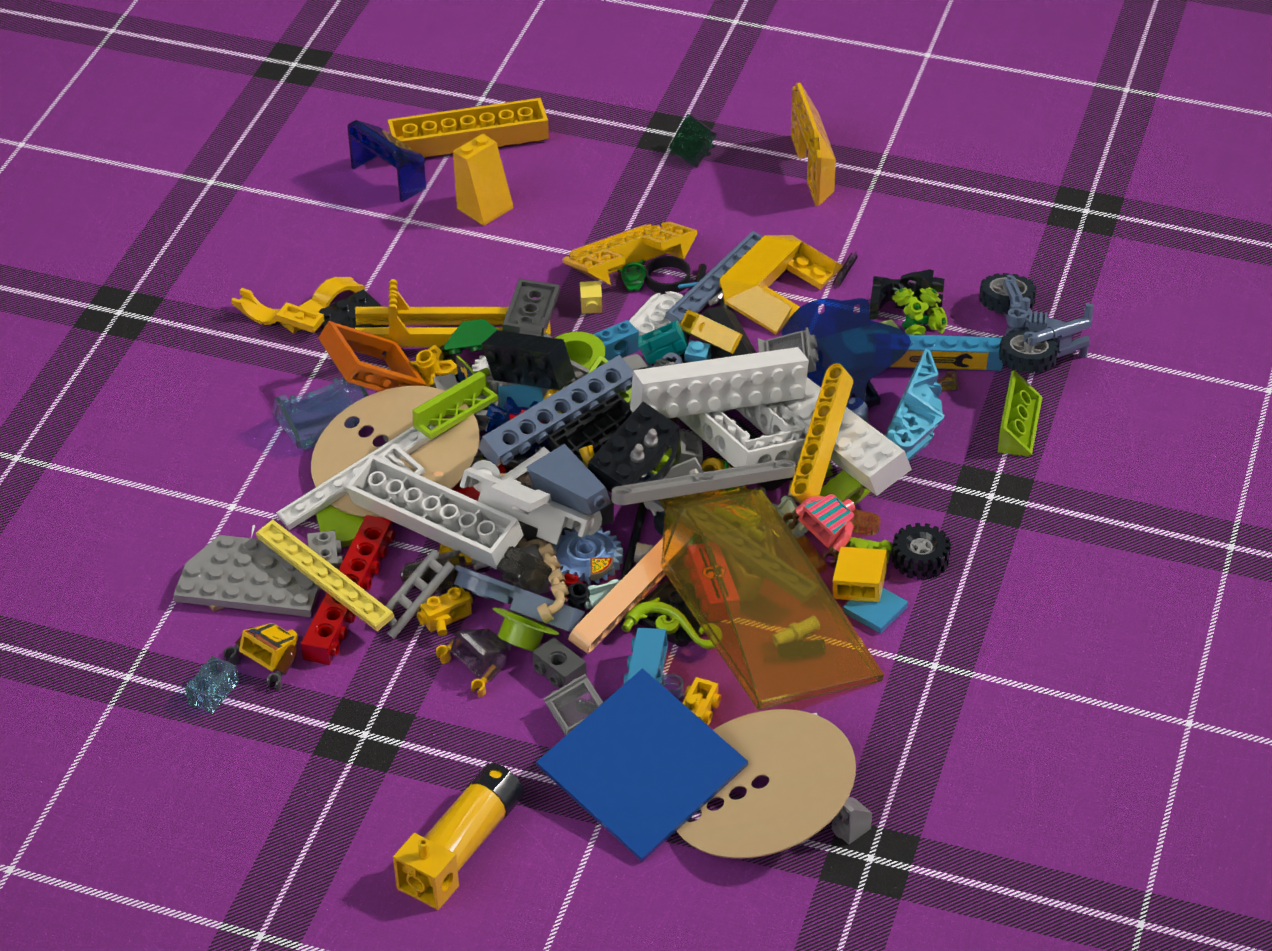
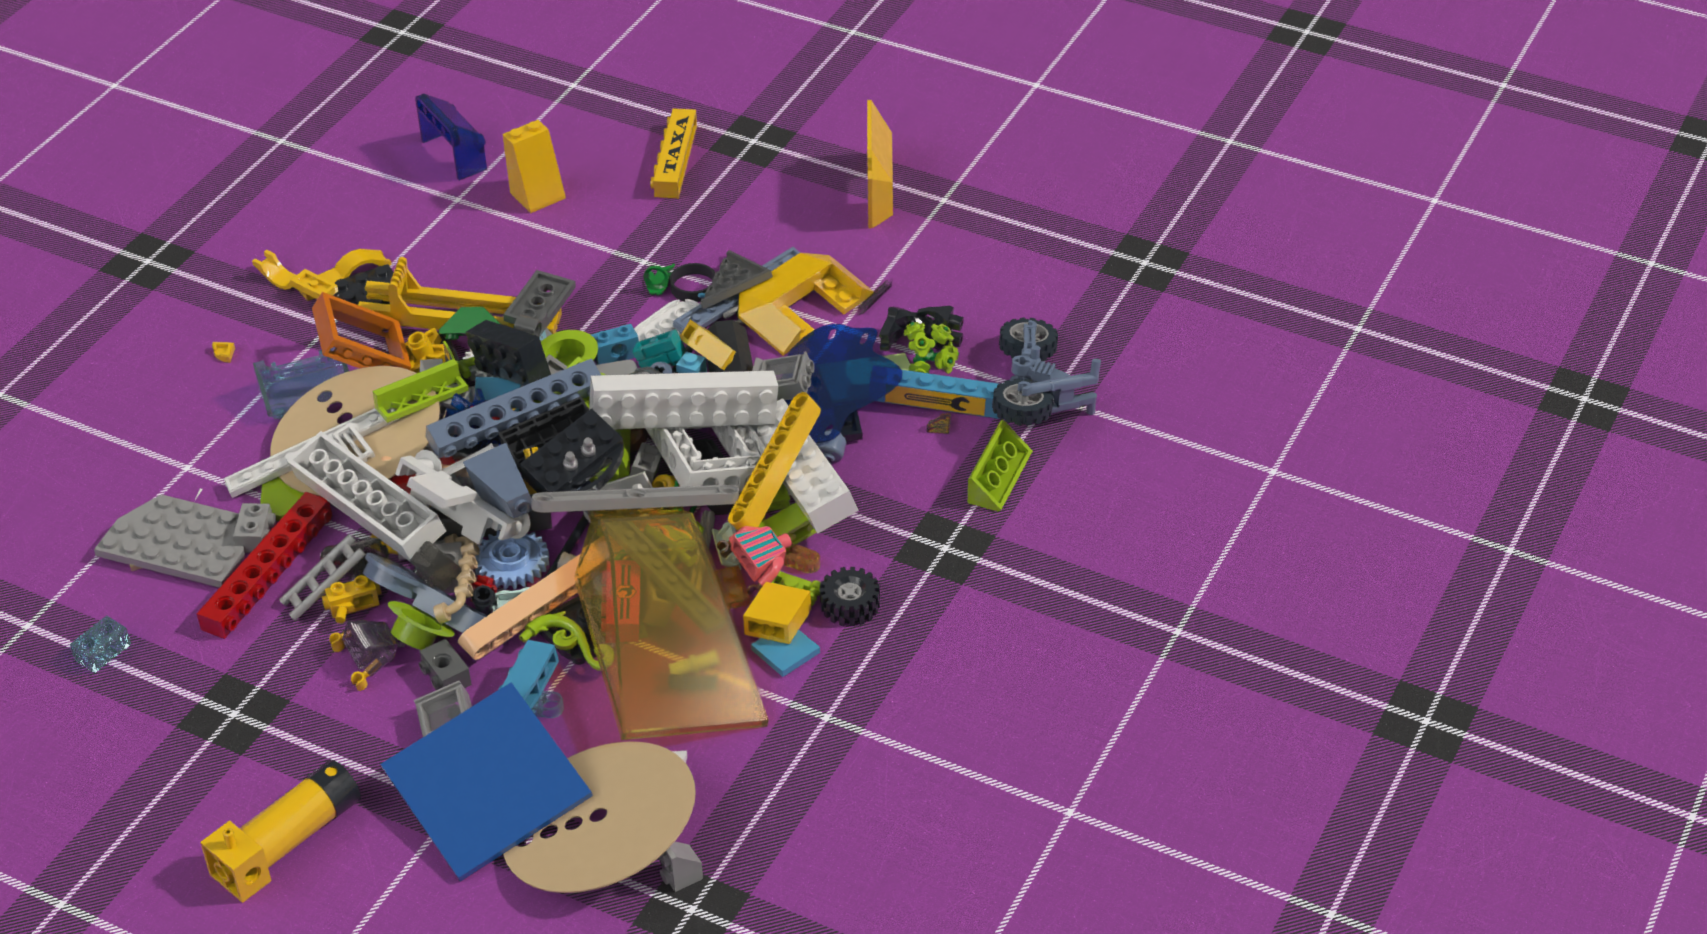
camera: 10 degrees right, 0 degrees up
(228, 390) = (223, 350): none -> yellow tile
(267, 646) = (166, 613): torso -> none
(325, 575) = (242, 548): light yellow tile -> none
(448, 130) = (559, 111): yellow brick -> none
(591, 297) = (607, 296): light yellow brick -> none
(600, 566) = (517, 572): tile -> none
(606, 154) = (674, 153): none -> yellow brick
(640, 243) = (662, 250): yellow slope -> none
(693, 140) = (763, 148): clear green plate -> none
(701, 698) = (570, 724): yellow brick -> none
(709, 265) = (734, 276): none -> dark grey tile
(918, 409) = (886, 453): medium azure connector -> none

